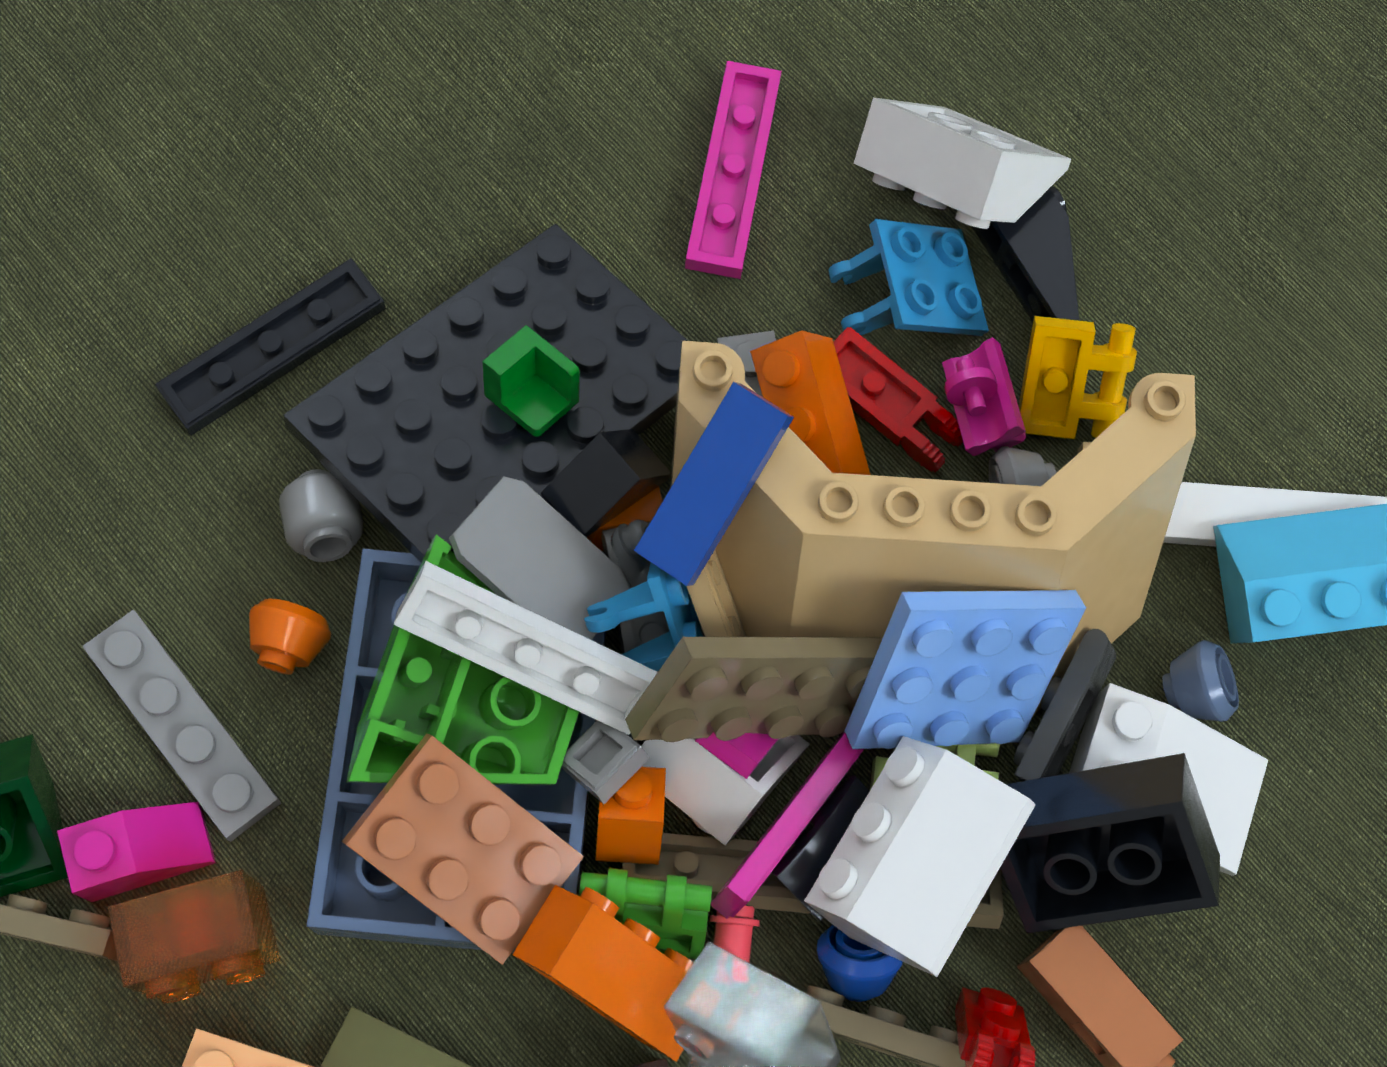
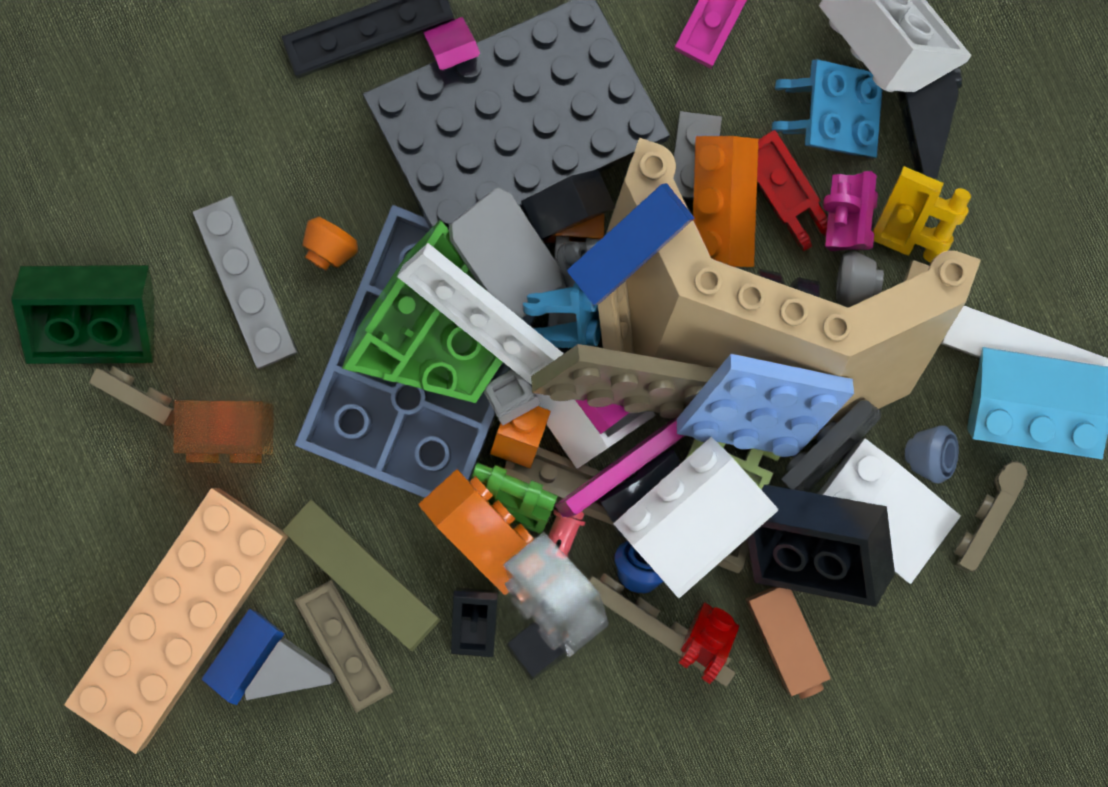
camera: 20 degrees right, 15 degrees up
(134, 849) = (198, 359): dark pink slope -> none
(320, 516) = (370, 167): light grey head -> none
(389, 325) = (451, 43): none -> dark pink tile
(462, 848) = (404, 429): nougat plate -> none
(531, 381) = (535, 121): green panel -> none
(1312, 743) = (991, 515): none -> dark tan hinge

